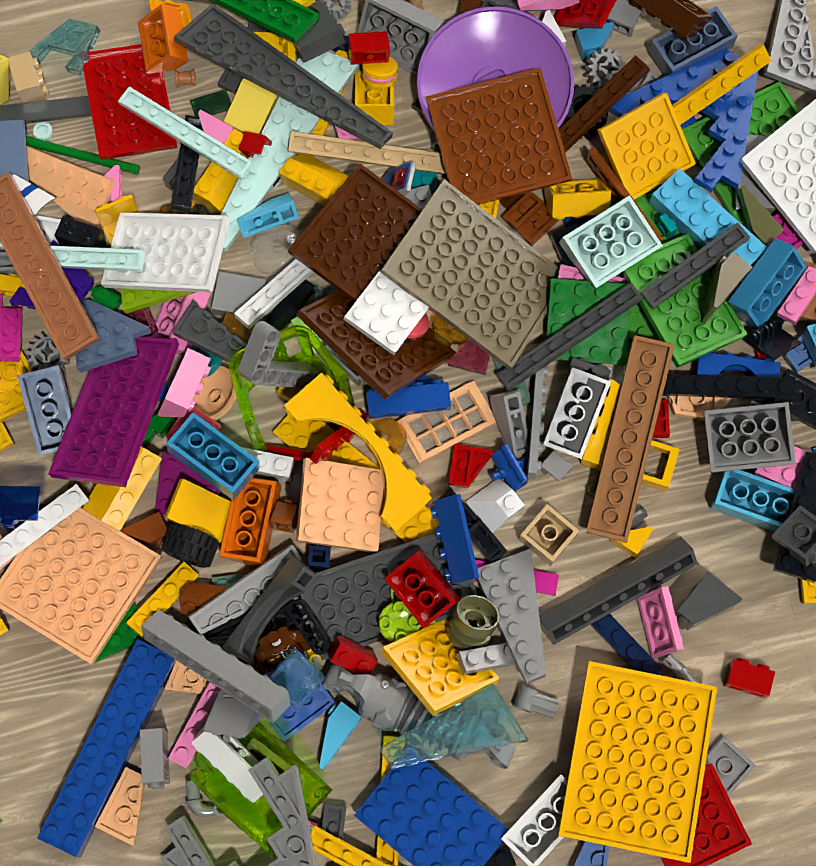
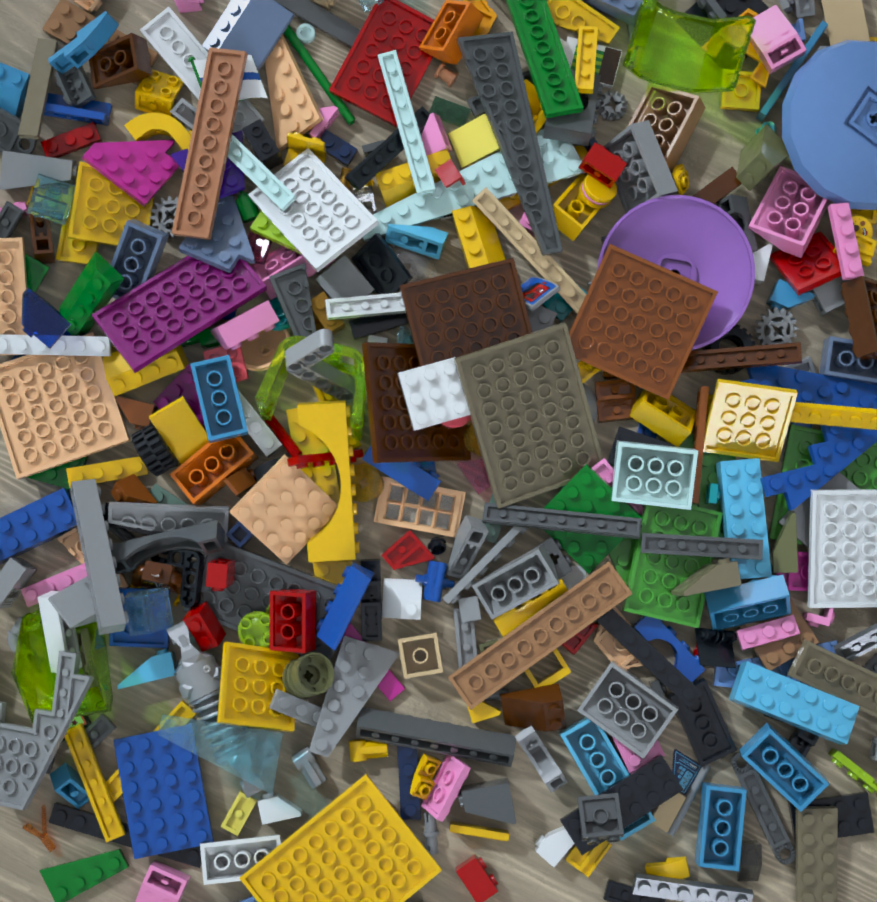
camera: 40 degrees right, 10 degrees up
(31, 458) = (89, 294): none -> green slope
(146, 197) = (338, 148): none -> dark blue plate
(256, 257) = (381, 266): none -> black plate
(331, 597) = (220, 573): none -> red brick
(438, 12) = (680, 178): none -> yellow slope
(487, 439) = (437, 545): none -> black plate
(510, 790) = (238, 813): none -> light yellow plate
(538, 759) = (277, 808): none -> white slope
(567, 651) = (363, 750): none -> yellow piece
(572, 494) = (464, 639): none -> light grey plate
(632, 625) = (422, 781): none -> yellow slope
(676, 501) = (535, 707): none -> reddish brown slope
(715, 539) = (541, 759): none -> light grey arch
(717, 638) = (479, 831): none -> yellow tile
(786, 598) = (554, 845): none -> white slope

